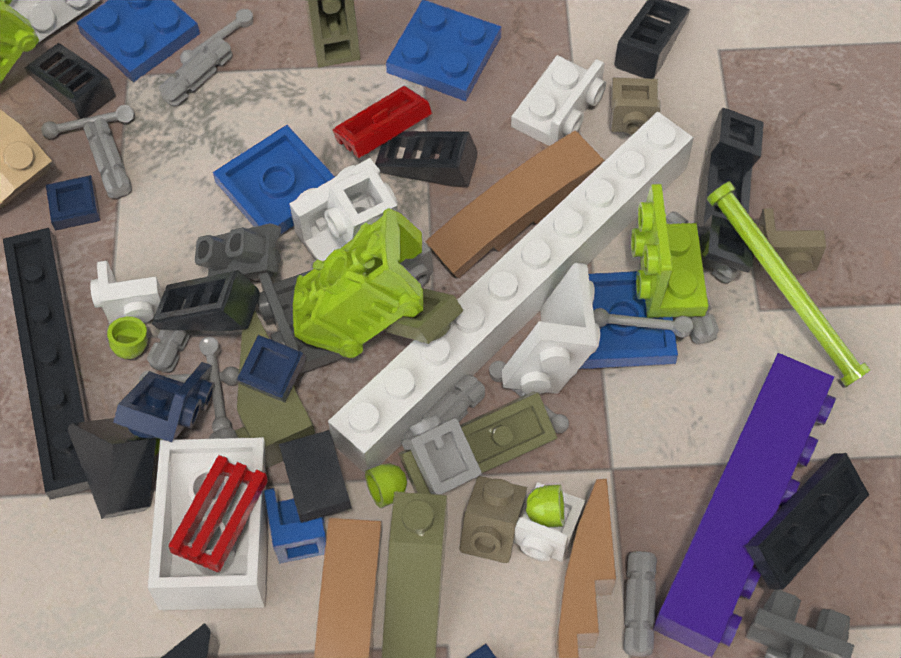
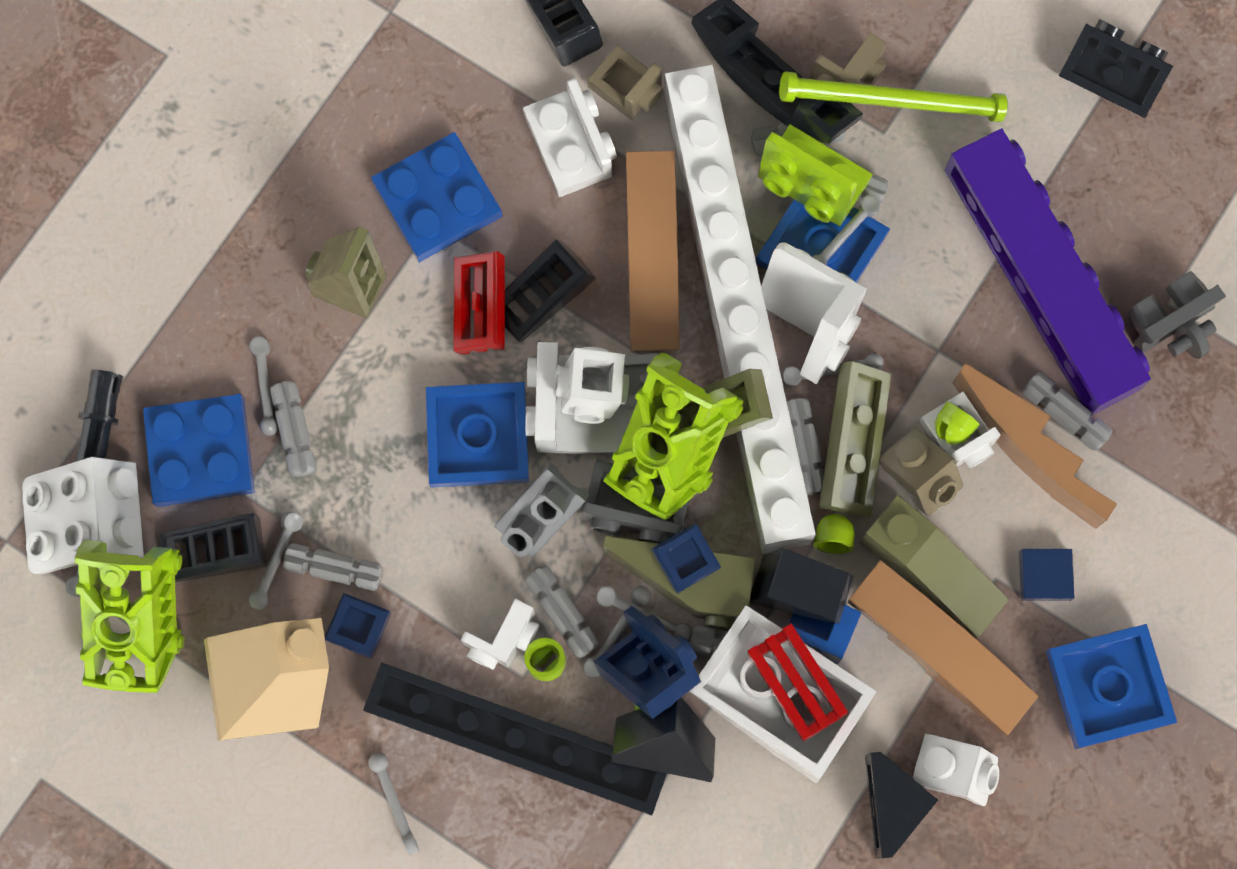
camera: 55 degrees left, 15 degrees up
(211, 304) = (598, 553): black slope -> none
(442, 454) = (853, 474): light grey bracket -> none
(807, 521) = (1098, 240): black tile -> none

